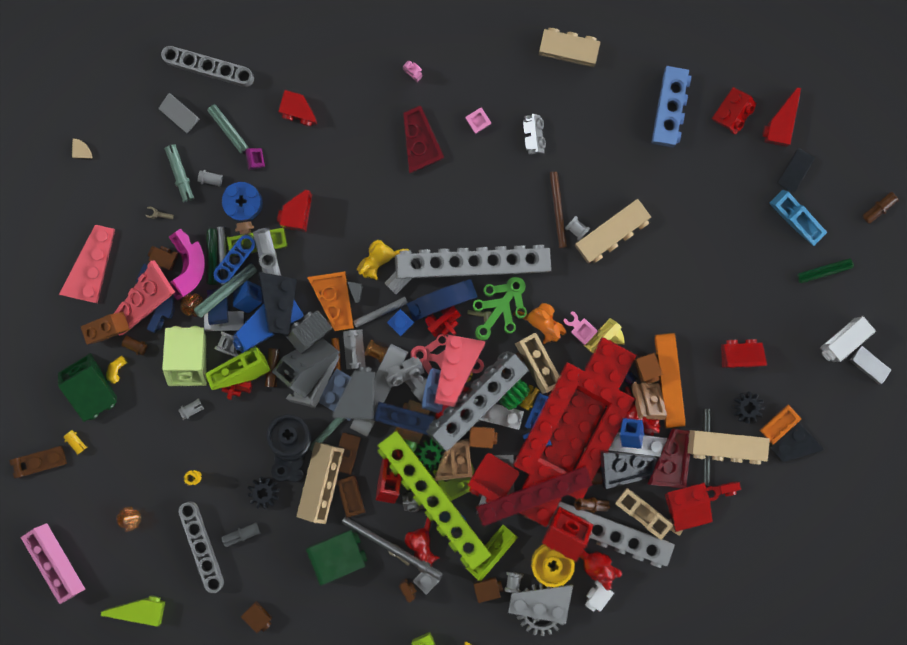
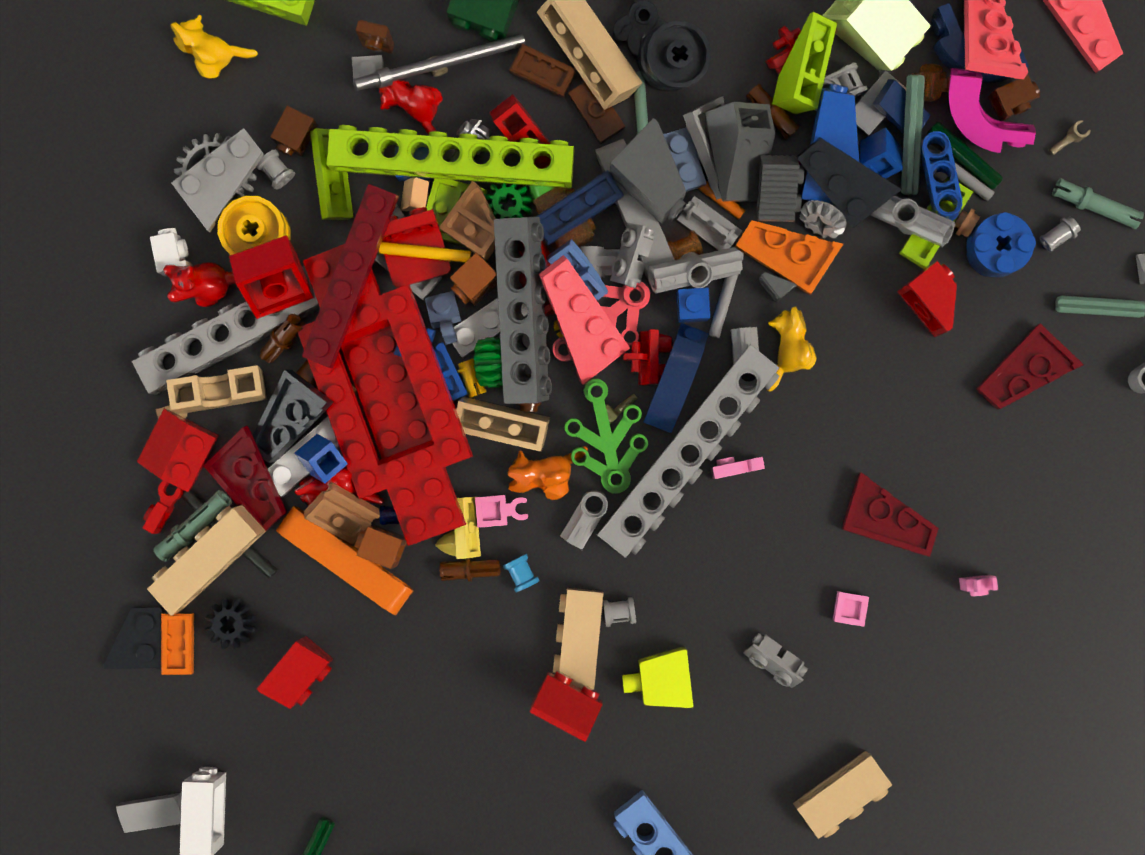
camera: 130 degrees right, 0 degrees up
(254, 158) = (1037, 307): magenta slope -> none
(288, 137) = (1027, 367): none -> dark red wing
(296, 107) = (1056, 409): red slope -> none
(304, 297) = (830, 222): none -> light grey gear
(377, 330) = (711, 267): none -> light grey piece
(462, 237) = (728, 467): none -> bright pink plate
(466, 503) = (414, 194): none -> light nougat slope
(489, 471) = (424, 252): none -> yellow bar
(510, 438) = (444, 313): none -> sand blue plate
(549, 283) = (584, 521): none -> light grey piece
(558, 210) = (661, 609): reddish brown bar -> none
(591, 179) = (662, 679): none -> neon yellow torso
(600, 291) = (521, 573): none -> dark azure bush
(621, 317) = (469, 569): none -> reddish brown axle
(643, 213) = (567, 705): none -> red slope
(726, 468) = (183, 534): none -> sand green pin

